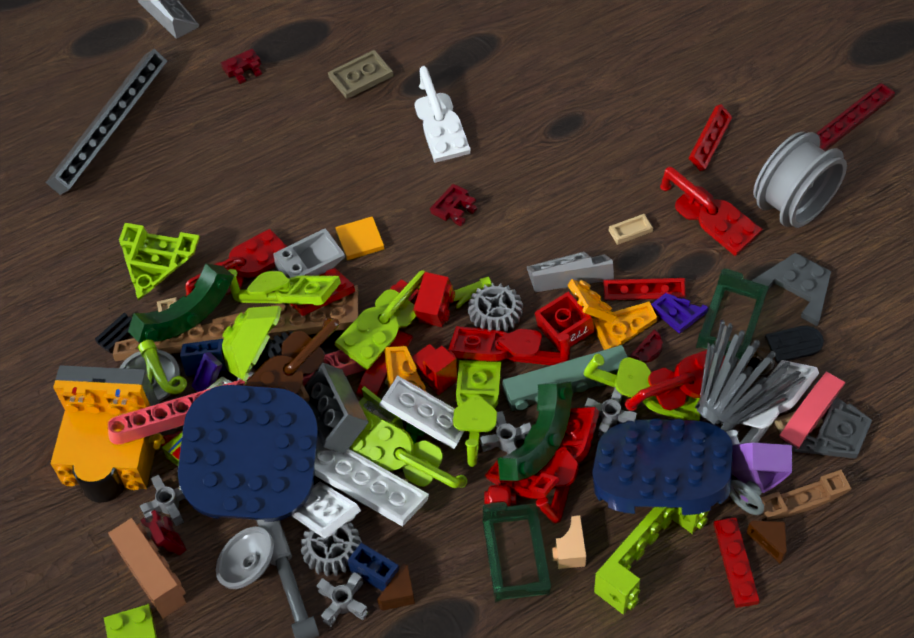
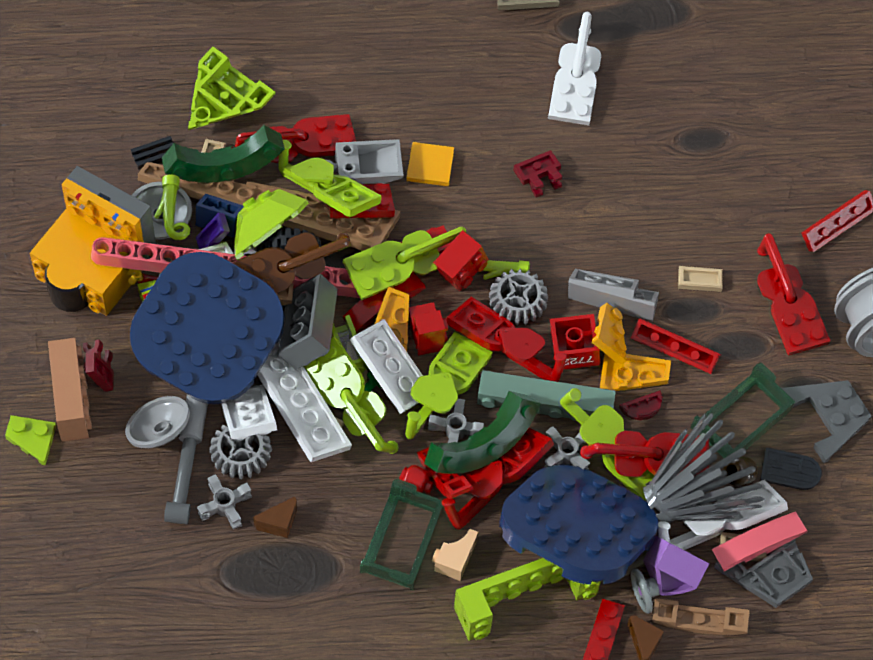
camera: 20 degrees right, 5 degrees up
(163, 493) = (107, 336): light grey pin -> none
(372, 566) = (265, 485): dark blue brick -> none
(678, 312) = (693, 384): dark purple wing -> none

